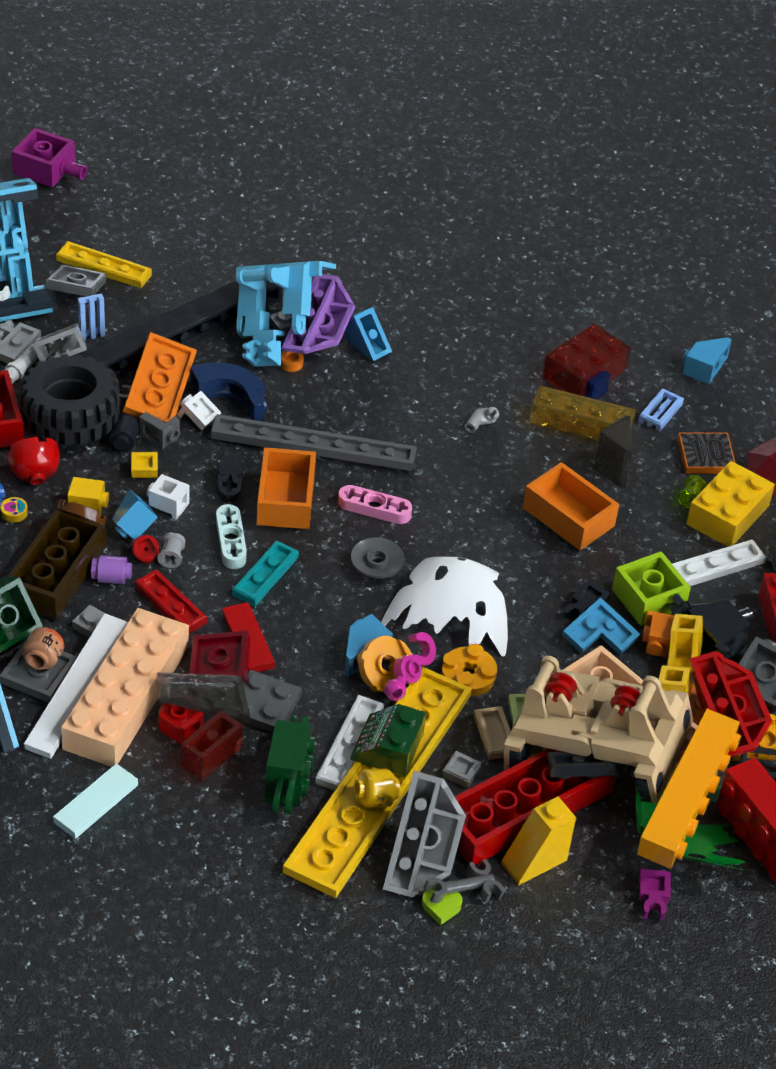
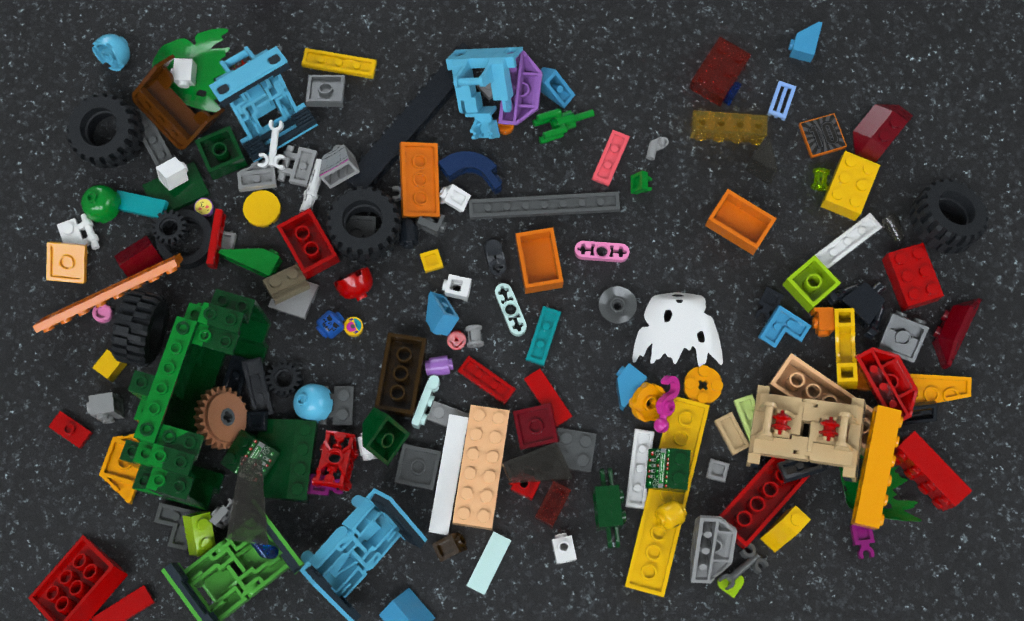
camera: 10 degrees left, 30 degrees up
(43, 648) = (418, 458): nougat head -> none
(47, 764) = (450, 546): none -> dark brown bracket
(81, 510) = (403, 326): reddish brown tile -> none
(83, 595) = (425, 401): none -> light aqua hinge
(88, 493) = (402, 304): yellow brick -> none
(92, 331) = (346, 137): light blue tile -> none
(209, 804) = (563, 548): none -> white brick
(362, 368) = (559, 122): none -> green plant
(417, 418) = (610, 158): none -> coral tile
(449, 446) = (639, 182): none -> green tile

